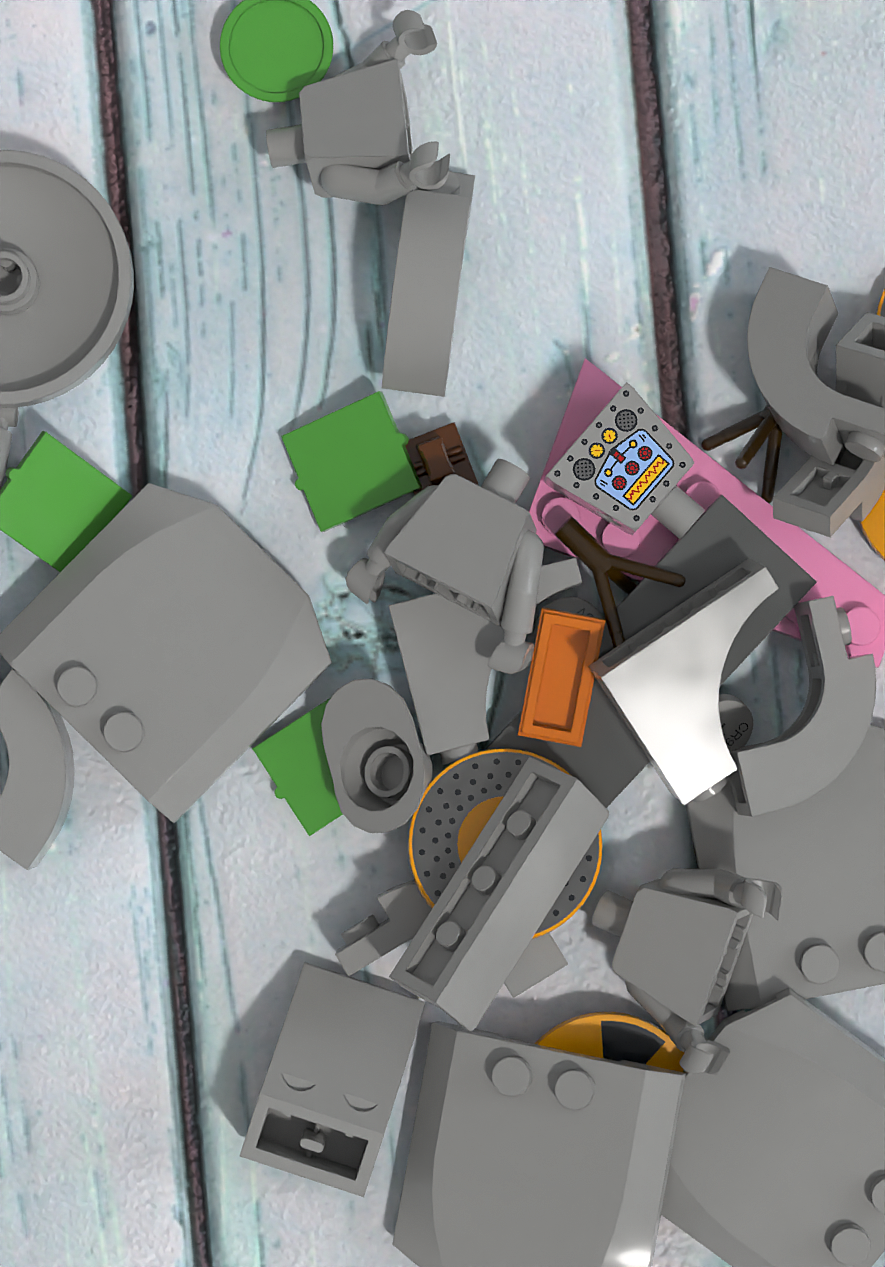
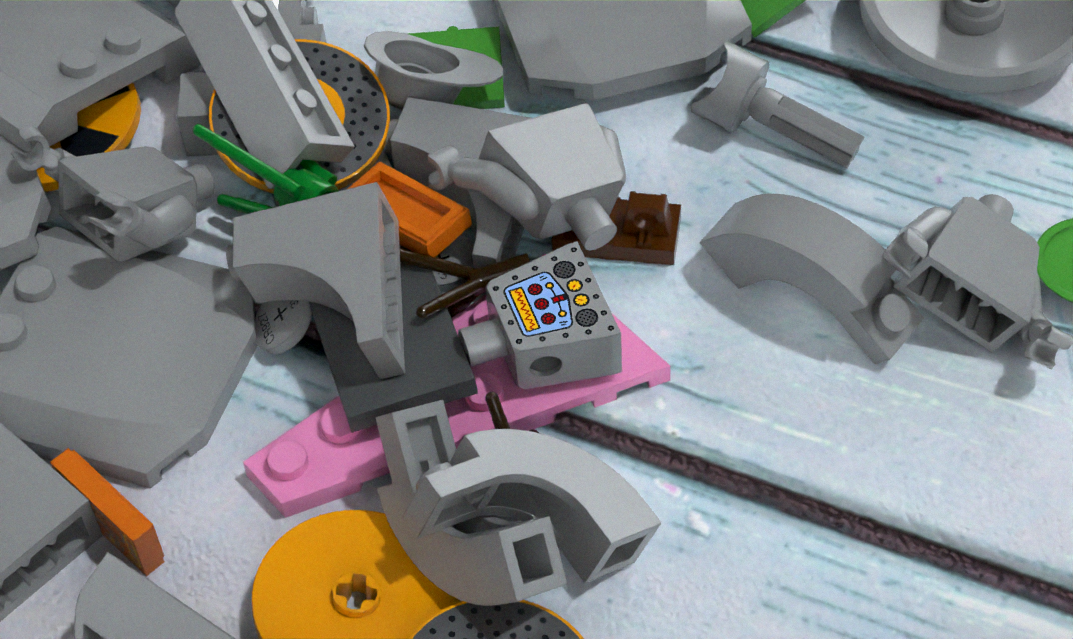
camera: 125 degrees right, 35 degrees down
(243, 448) = (744, 95): none -> light grey piece
(351, 461) = (687, 169): bright green piece -> none
(608, 775) = (289, 187): none -> green plant
(826, 731) = (207, 326): light grey arch -> none

